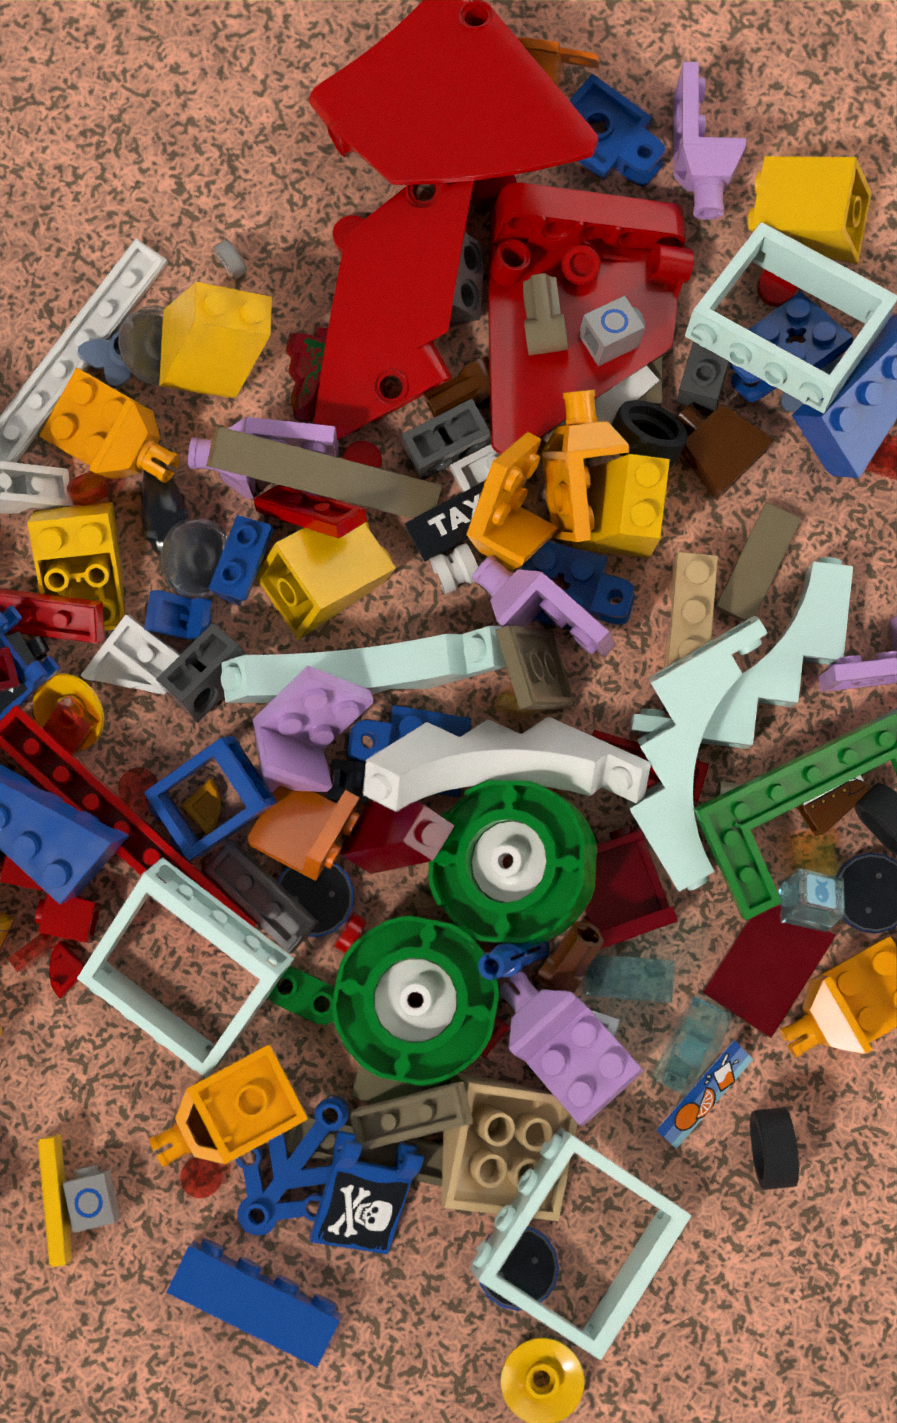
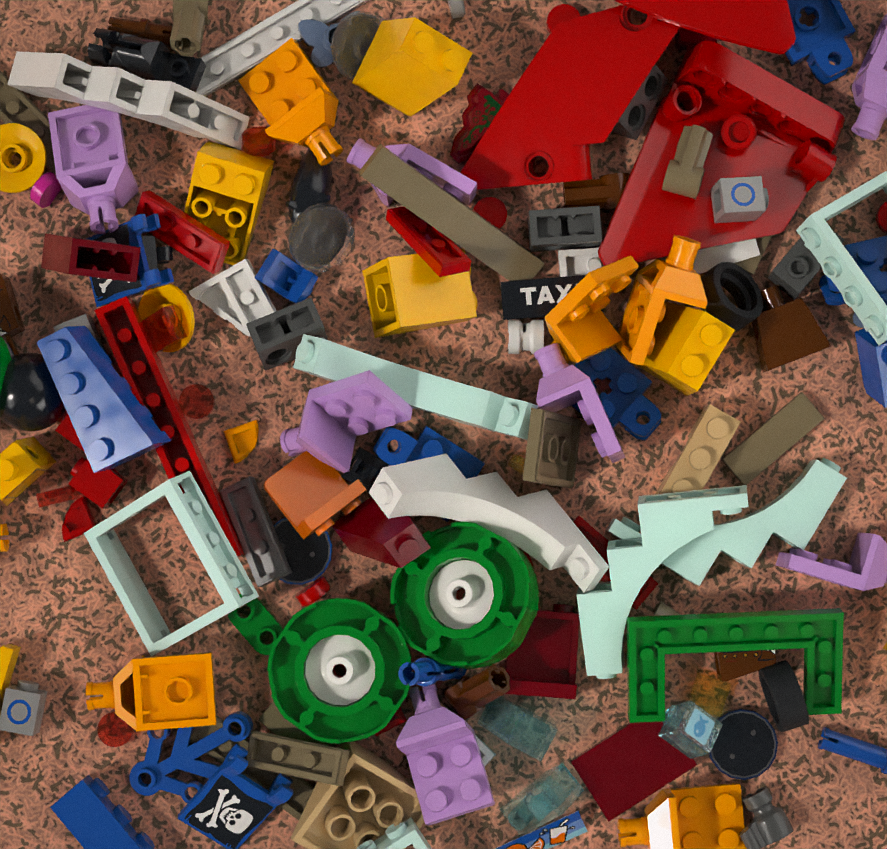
camera: 30 degrees right, 5 degrees up
(241, 560) = (356, 255): blue bracket -> none
(242, 777) = (280, 431): blue window -> none

